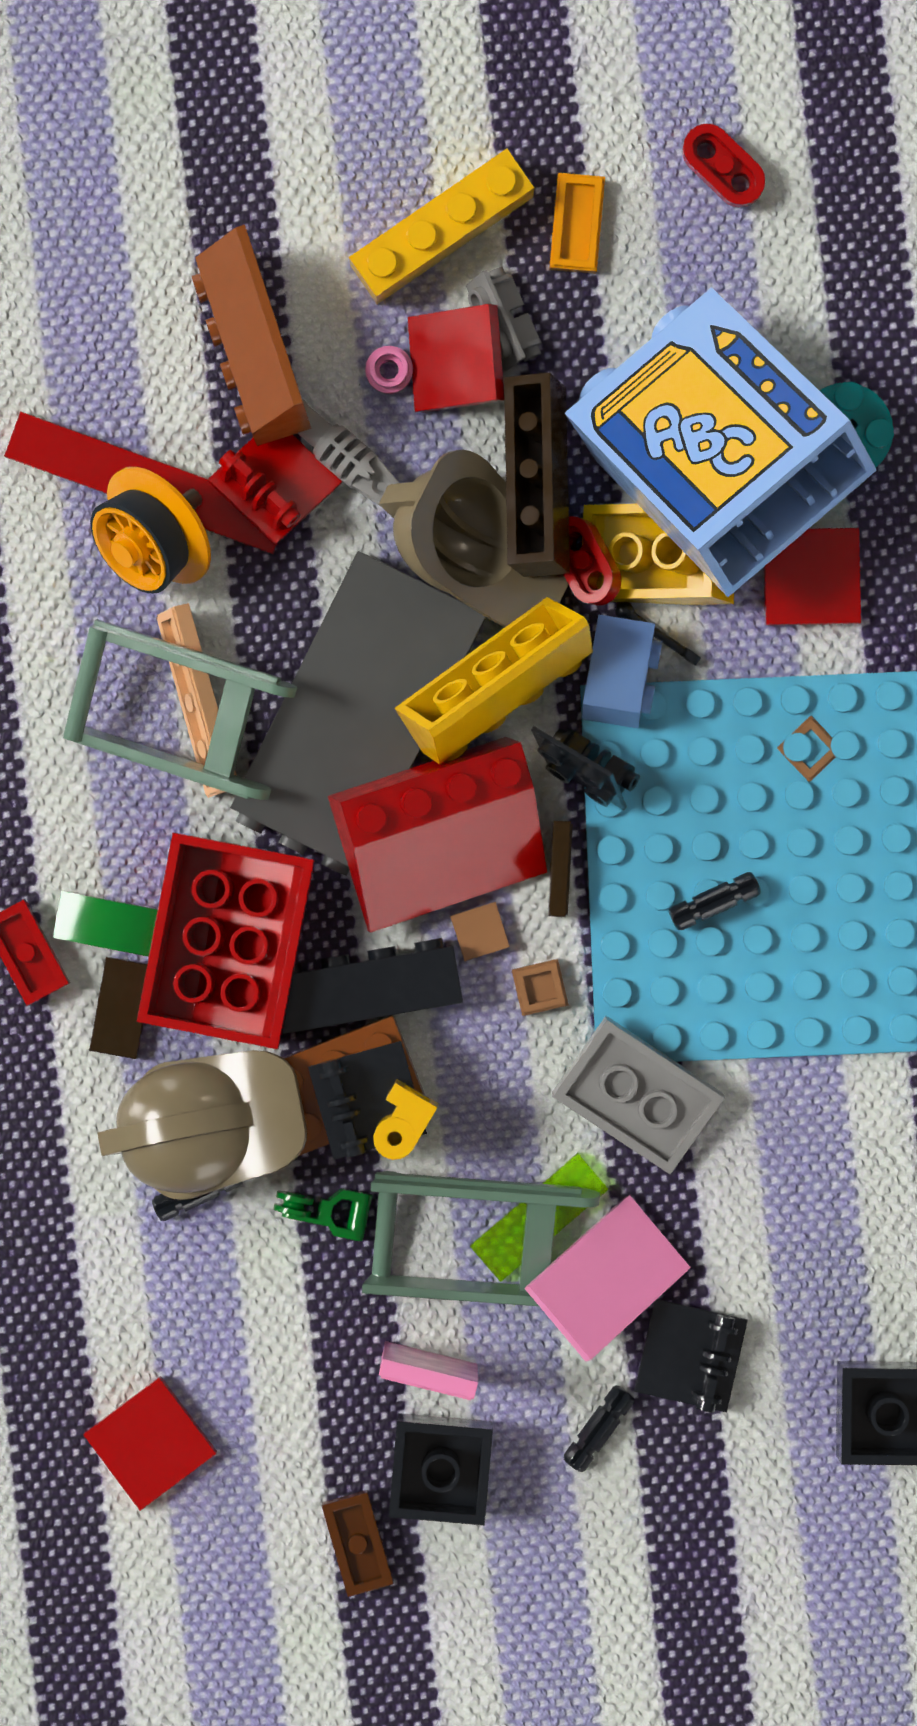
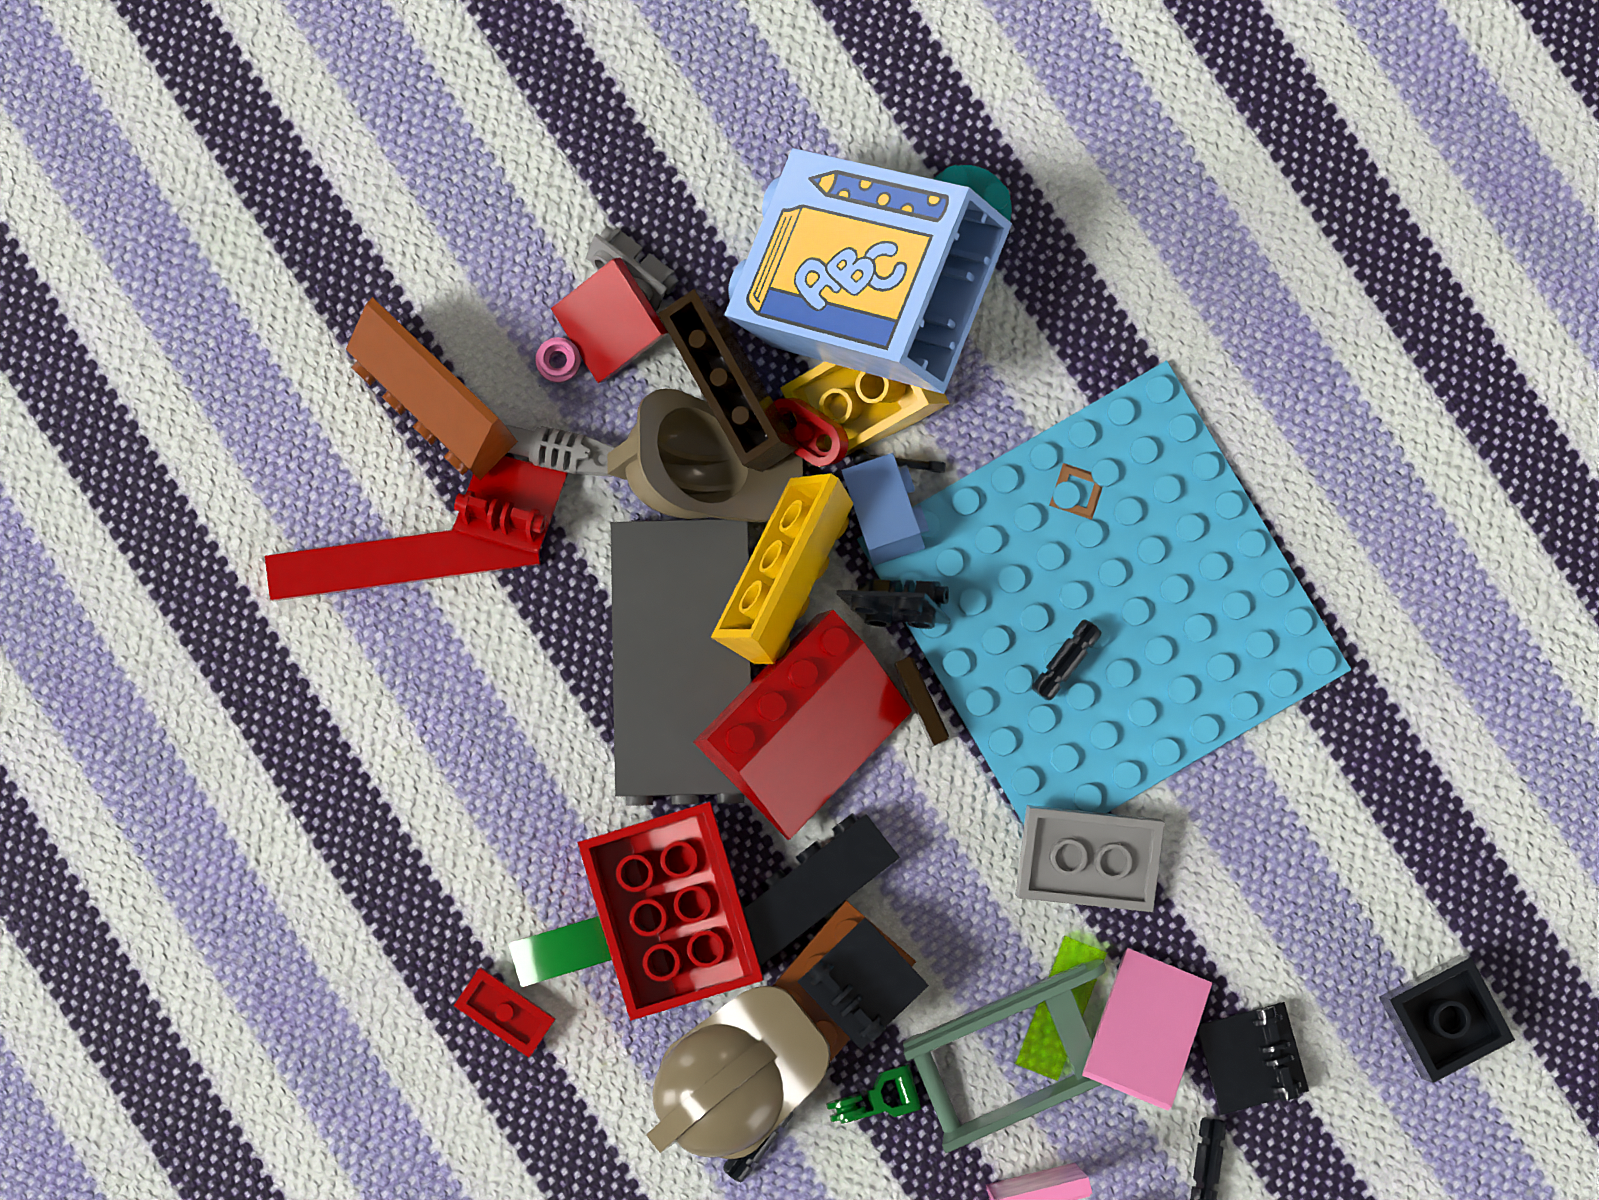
camera: 30 degrees left, 5 degrees down
(117, 1009) = (613, 1032): dark brown tile -> none
(150, 531) = (426, 596): light orange piece -> none
(191, 685) = (540, 720): light nougat tile -> none
(229, 723) = (577, 724): sand green piece -> none
(401, 1130) = (906, 994): yellow leg -> none
(442, 226) = (540, 218): yellow brick -> none
(479, 931) = (881, 790): medium nougat tile -> none
(540, 987) = (957, 811): medium nougat tile -> none
(577, 223) = (651, 158): light orange tile -> none
(728, 162) = (751, 44): red plate -> none
(815, 580) = (1006, 349): red tile -> none

